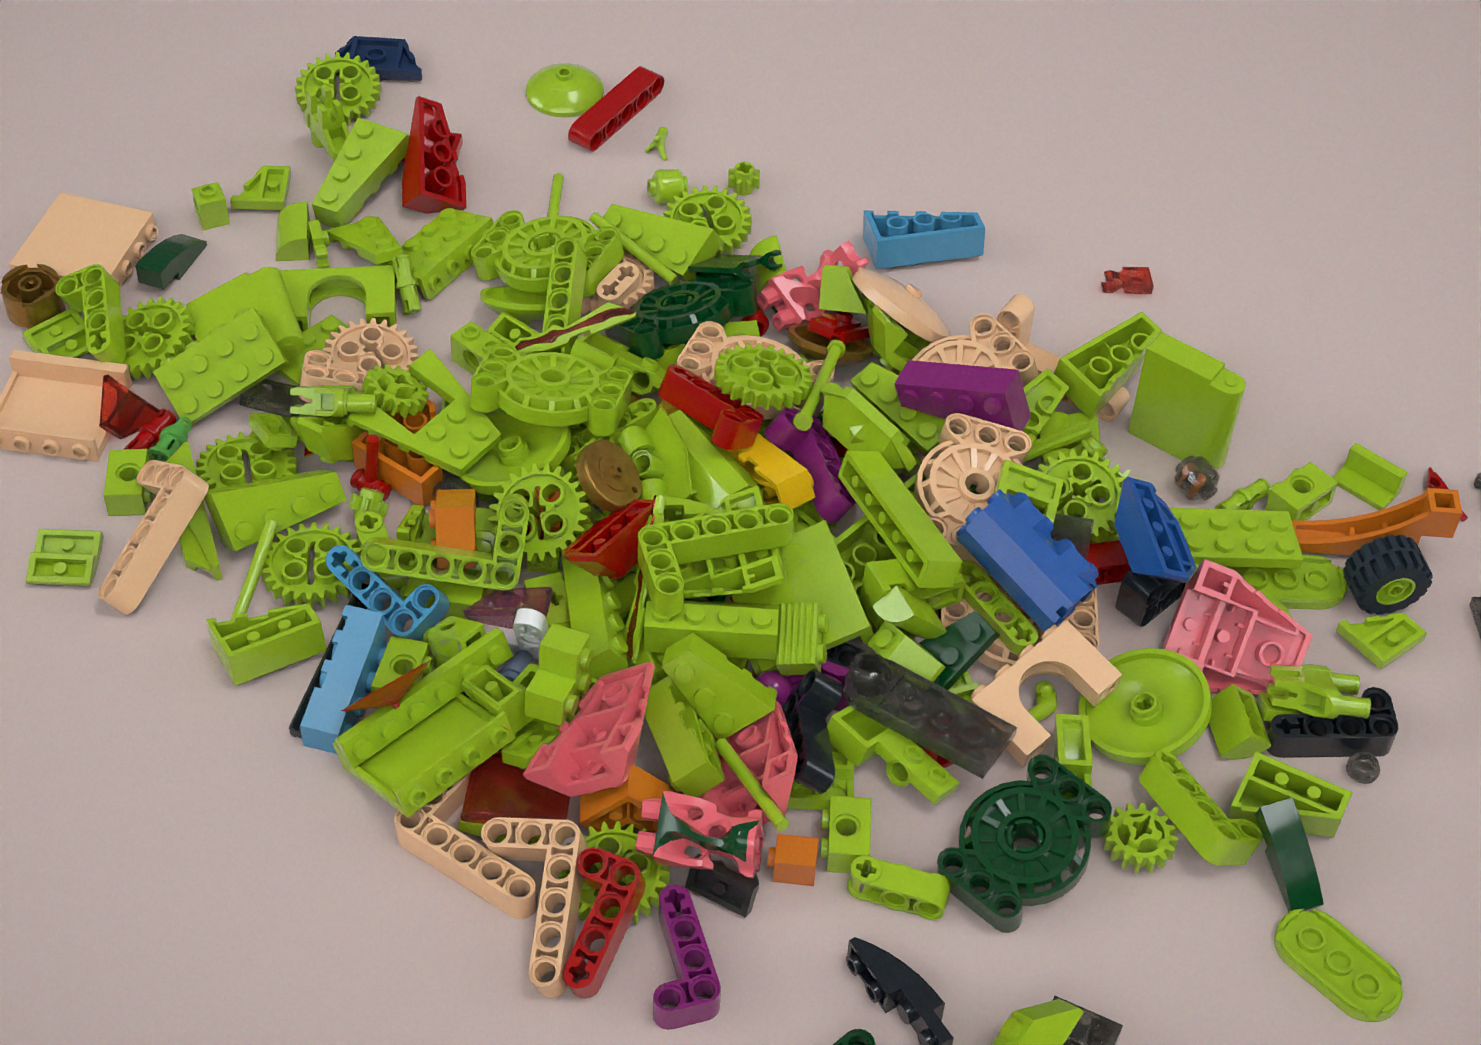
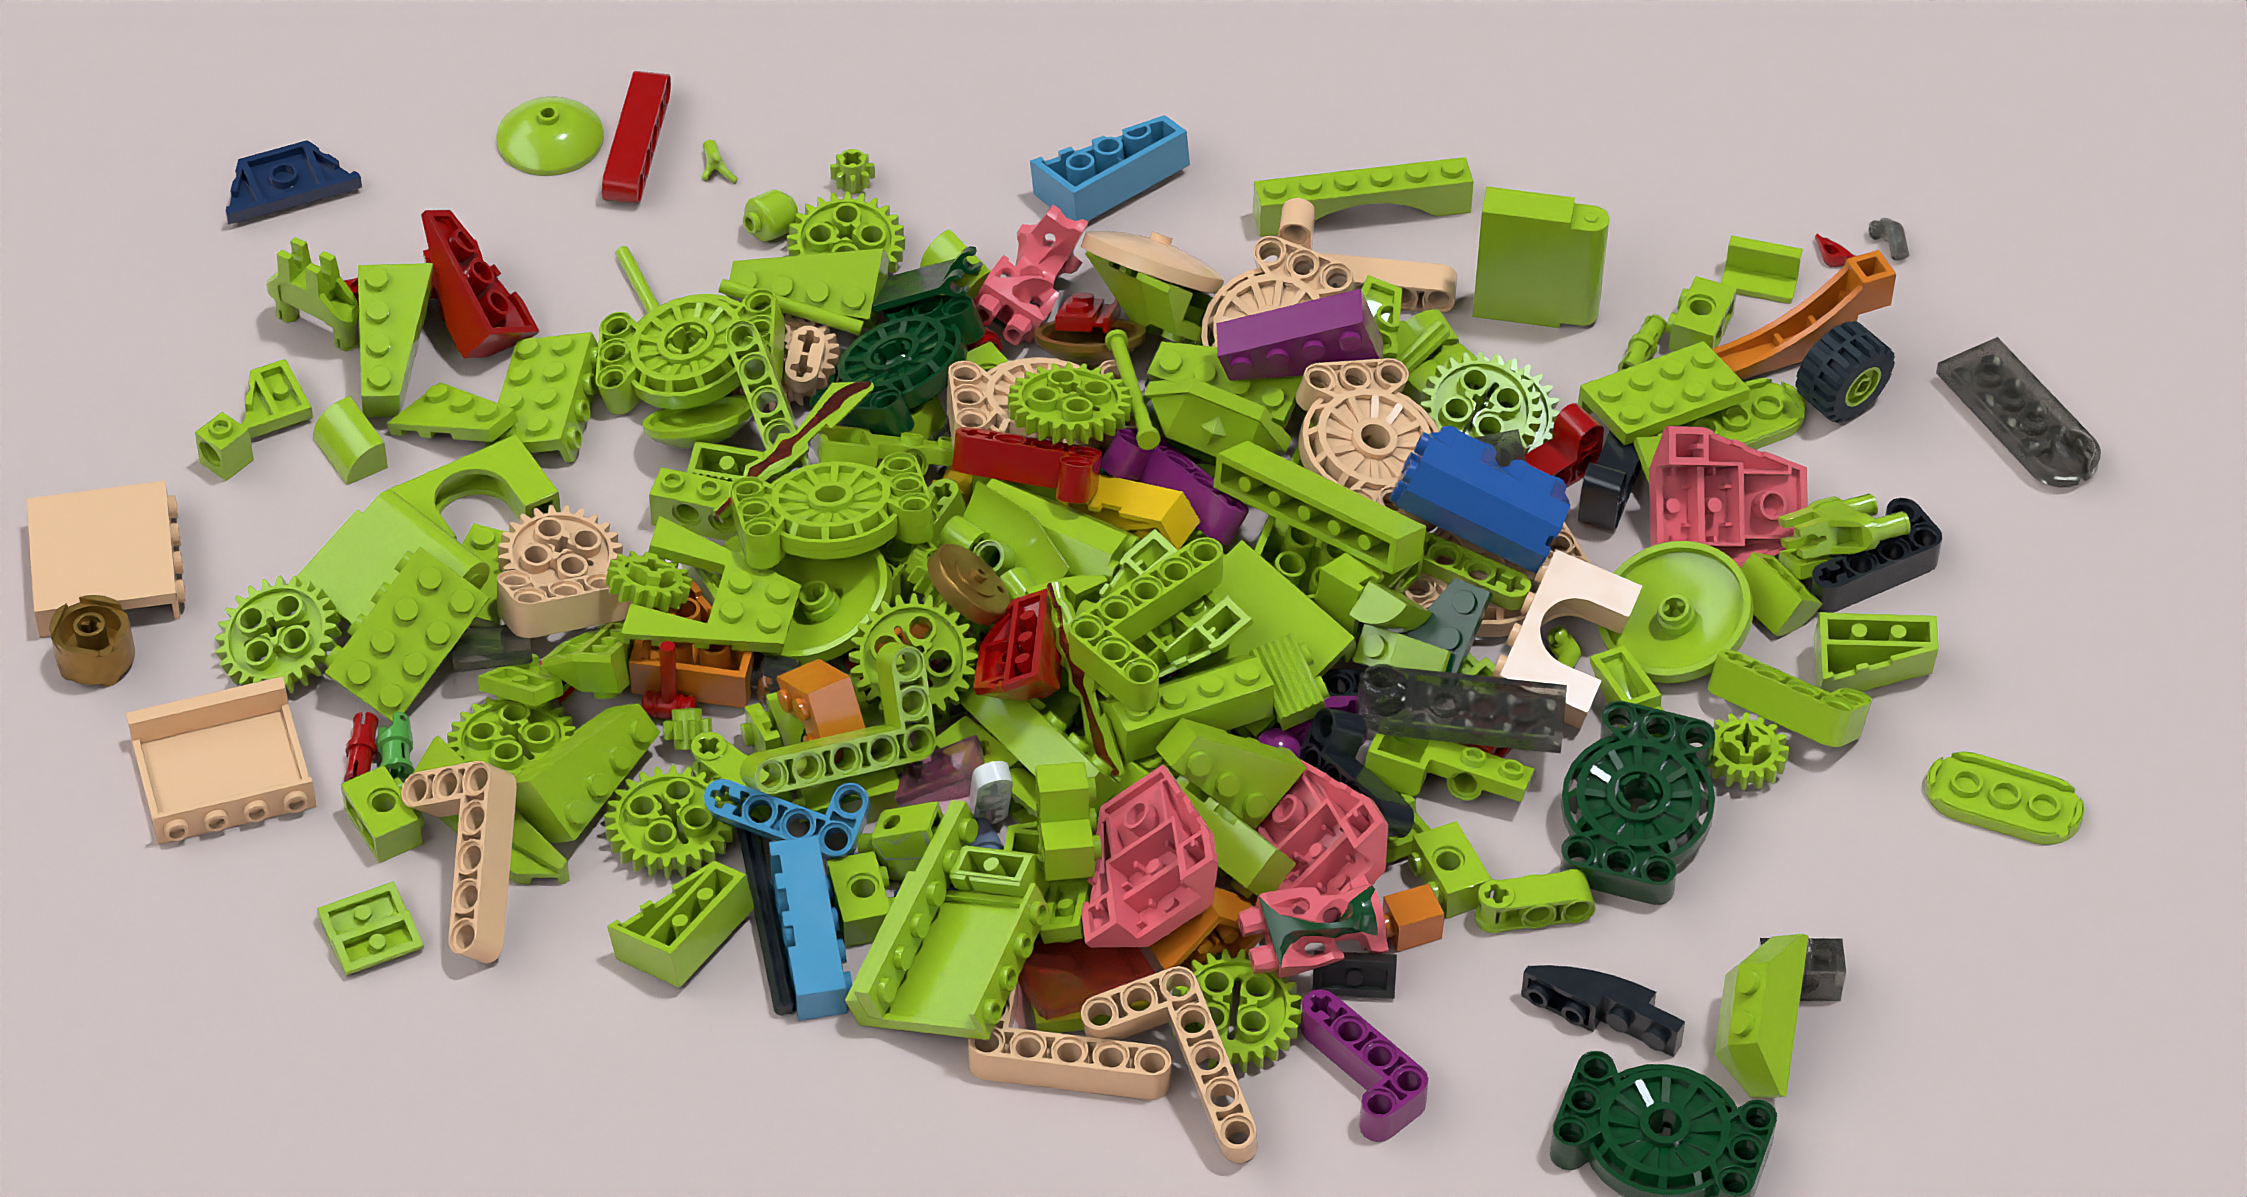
camera: 25 degrees left, 0 degrees up
(59, 335) = (161, 675): lime slope -> none
(99, 297) = (209, 631): lime beam -> none
(123, 409) = (313, 729): clear red slope -> none
(169, 260) = (223, 533): dark green slope -> none
(255, 568) = (615, 853): lime bar -> none
(319, 241) = (396, 444): lime plate -> none
(333, 401) = (587, 621): lime connector -> none
(358, 87) = (241, 249): lime gear -> none
(390, 693) = (885, 912): hat -> none
(407, 284) = (545, 452): lime pin -> none
(596, 924) = (1264, 1062): red beam -> none
(752, 784) = (1331, 854): lime bar -> none
(839, 290) = (1072, 271): lime slope -> none
(1039, 487) = (1430, 415): lime plate -> none
(1068, 306) = (1431, 186): none -> lime arch
(1094, 445) = (1461, 345): lime plate -> none
(1106, 363) = (1422, 242): lime wedge -> none
(1132, 280) = (1377, 132): clear red plate -> none
(1151, 534) = (1592, 422): blue wedge -> none
(1196, 478) = (1583, 341): clear smoke head -> none
(1290, 855) = (1906, 706): dark green slope -> none
(1363, 767) = (1923, 589): clear smoke plate -> none
(1383, 637) = (1869, 443): lime wing -> none

